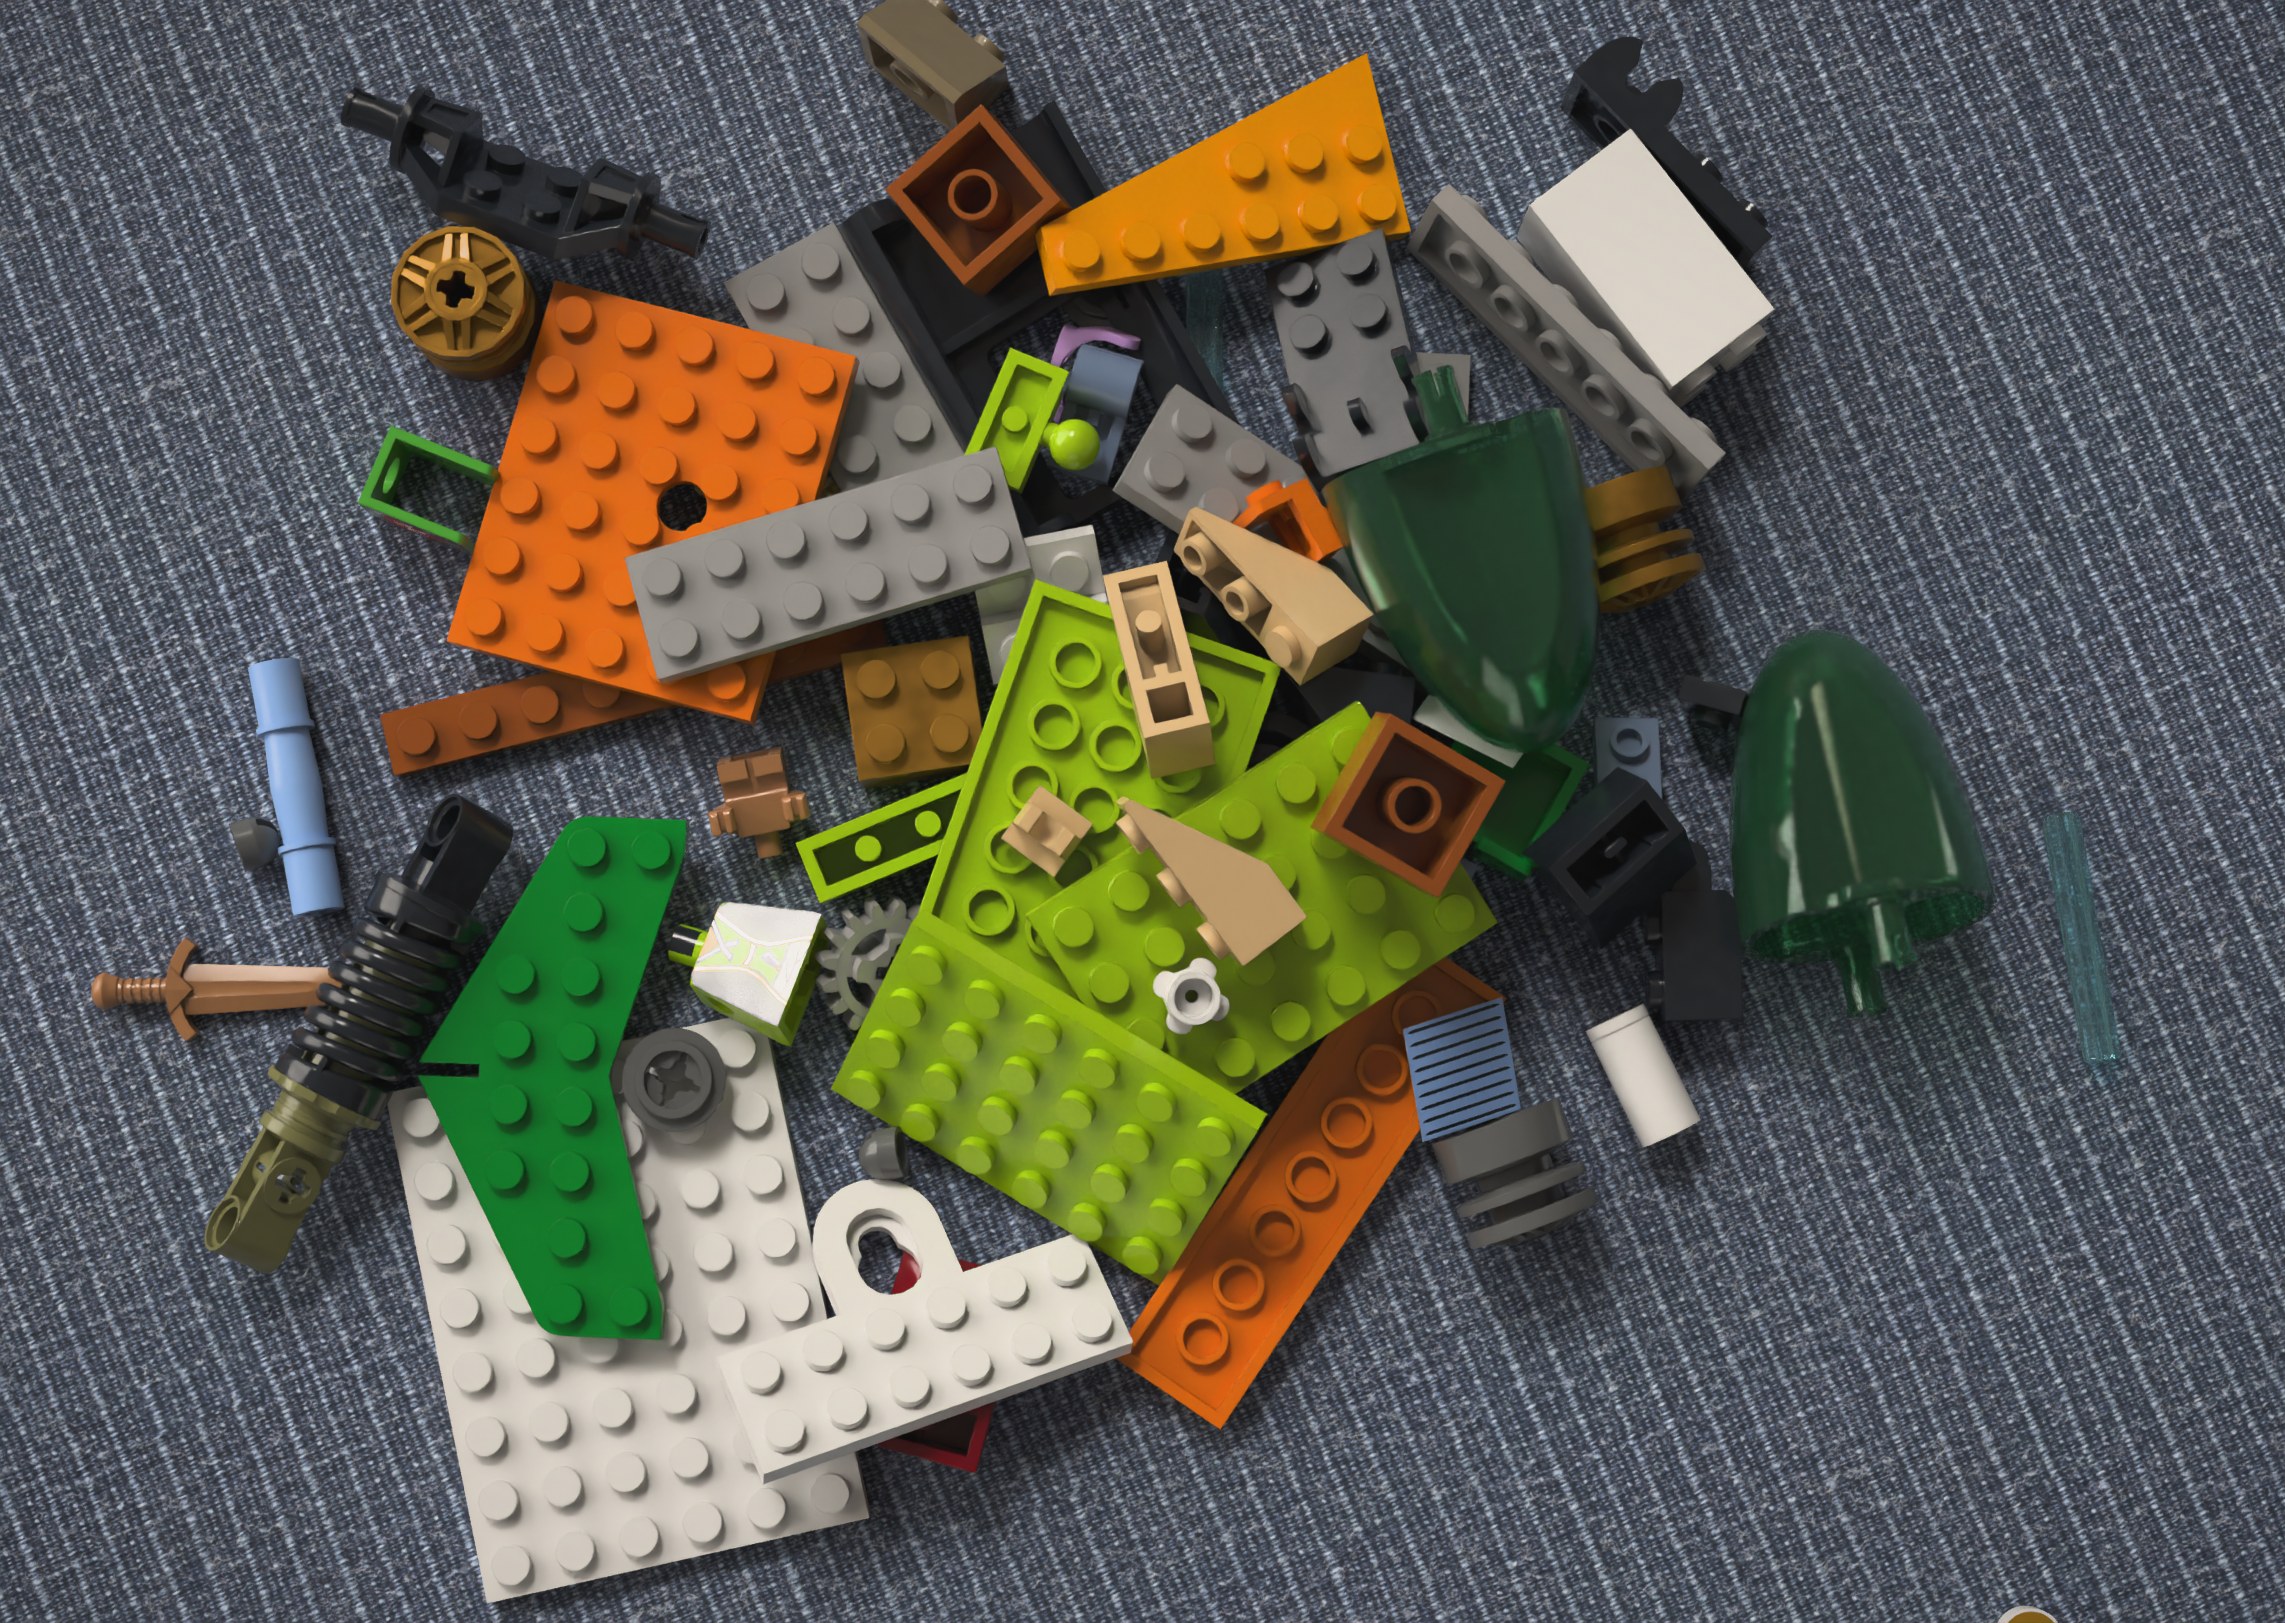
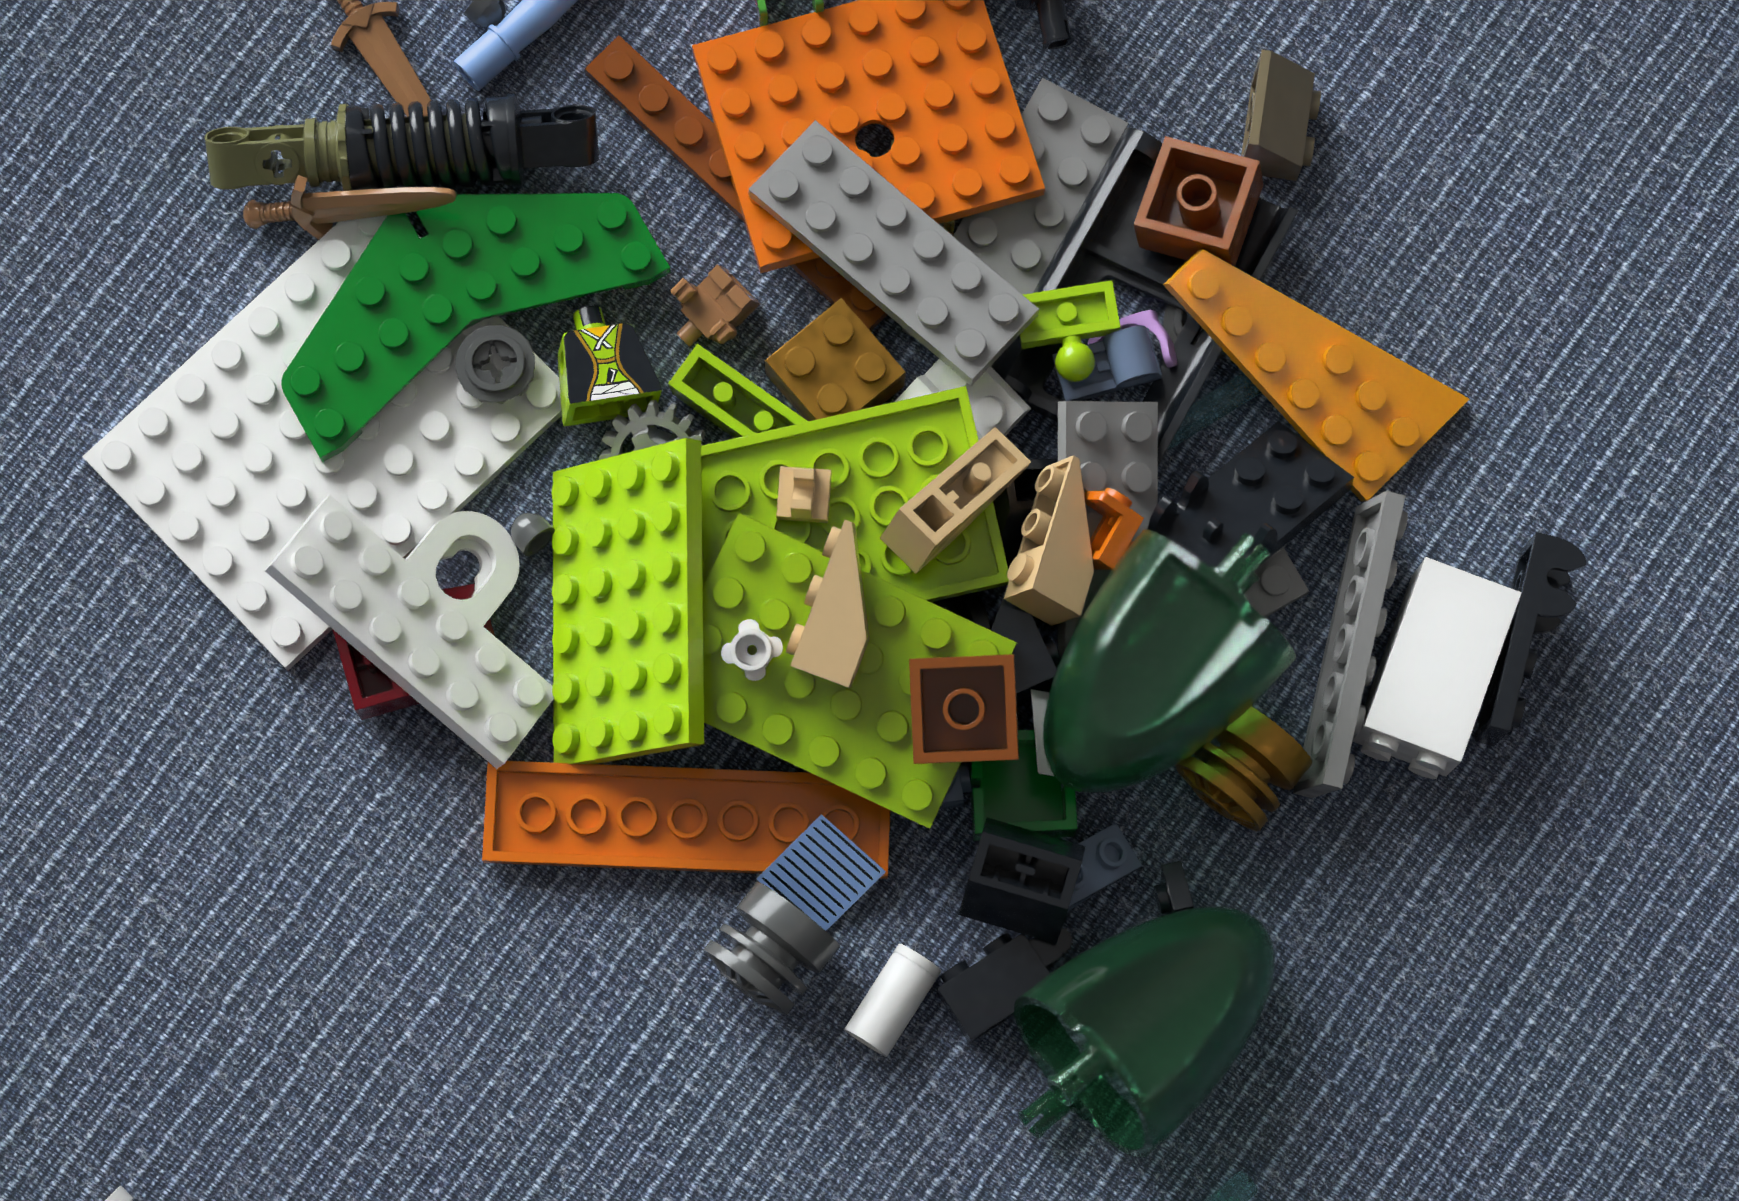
camera: 55 degrees right, 5 degrees down
(374, 1170) = (319, 210): none -> medium nougat sword

